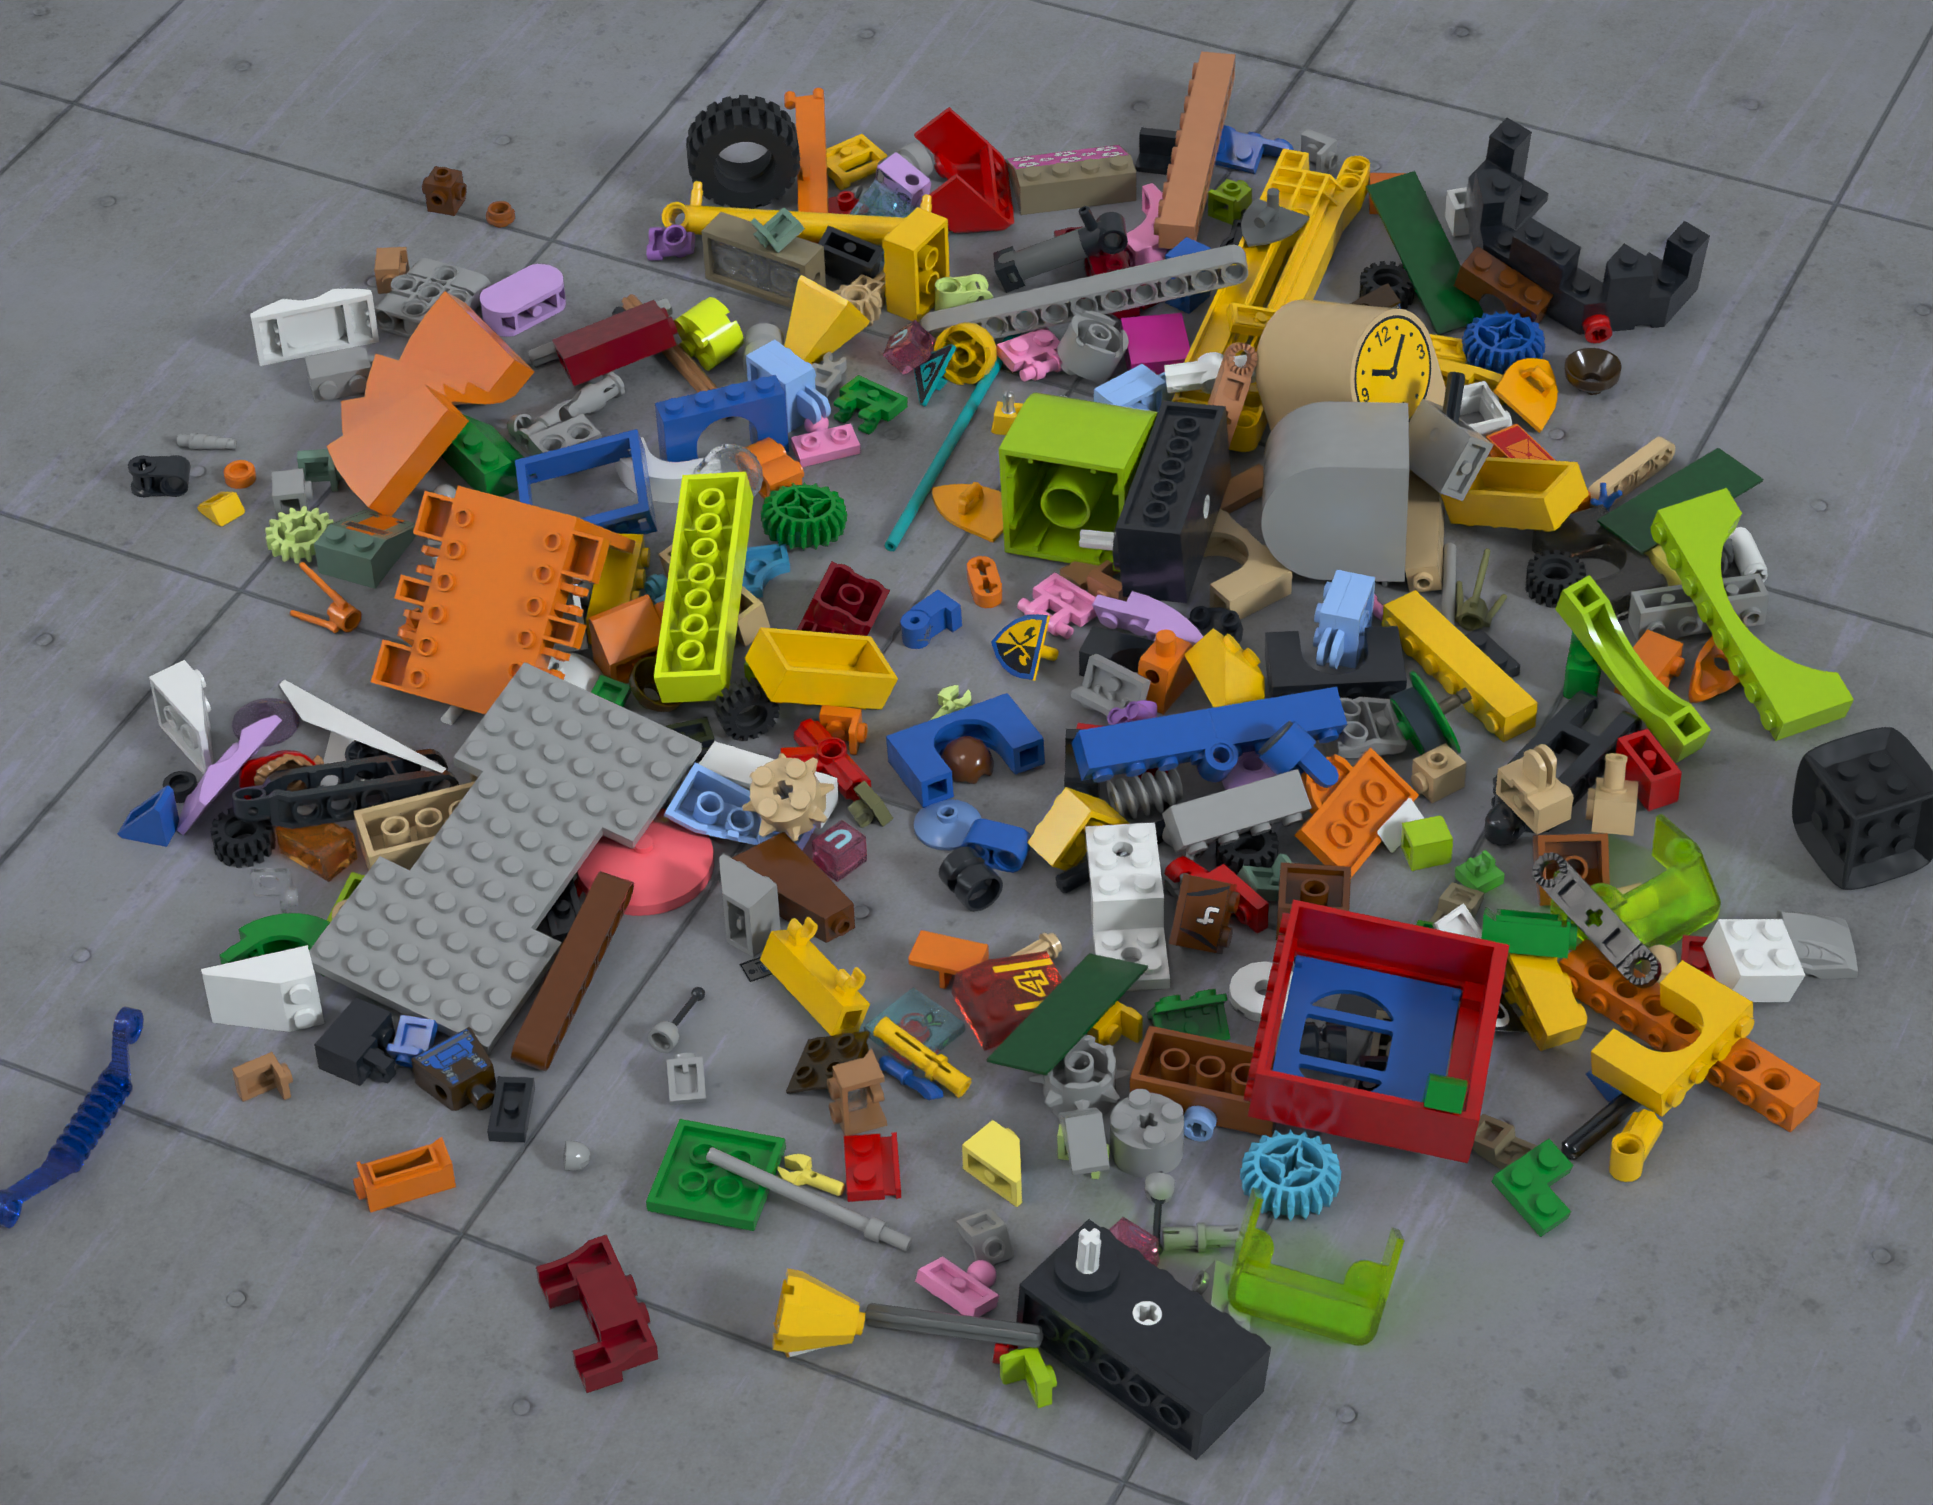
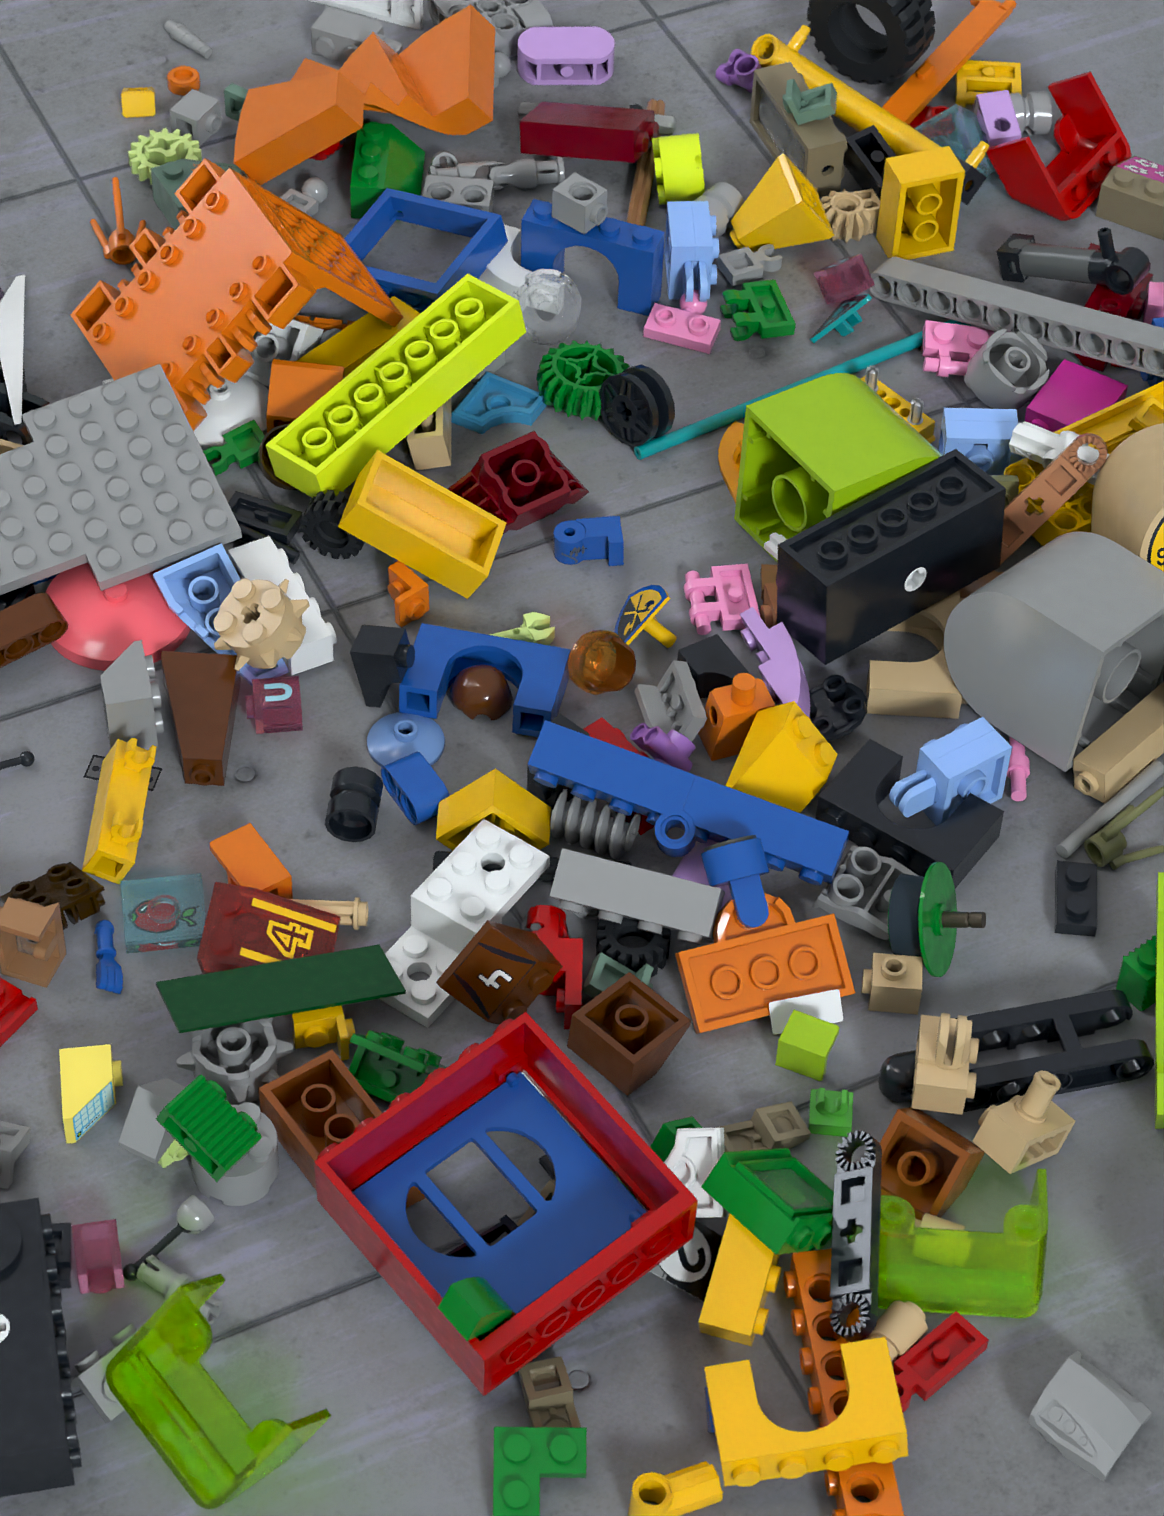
camera: 35 degrees right, 5 degrees up
(161, 475) = (116, 45): black piece -> none
(706, 384) = (579, 203): none -> light grey brick
(776, 466) = (606, 317): orange brick -> none
(831, 756) = (354, 607): red piece -> none
(869, 509) = (637, 405): none -> black wheel
(869, 807) = (344, 682): olive tile -> none
(894, 772) = (380, 659): none -> black arch
(935, 1066) = (136, 984): yellow pin -> none
(960, 291) = (951, 253): yellowish green piece -> none
(973, 354) = (892, 313): yellow cylinder -> none
(989, 581) = (689, 538): orange beam -> none
(1034, 689) = (601, 662): none -> clear orange piece
(1142, 1111) = (209, 1127): none -> green brick
(1199, 1123) = (296, 1177): light blue bush -> none
(1291, 1174) = (310, 1308): medium azure gear -> none
(1330, 1033) = (474, 1176): black wheel -> none
(1460, 664) = (1032, 891): yellow brick -> none
(1598, 1126) = (661, 1450): black axle -> none
(1652, 768) = (1101, 1115): red brick -> none
(1754, 959) = (990, 1388): white brick -> none

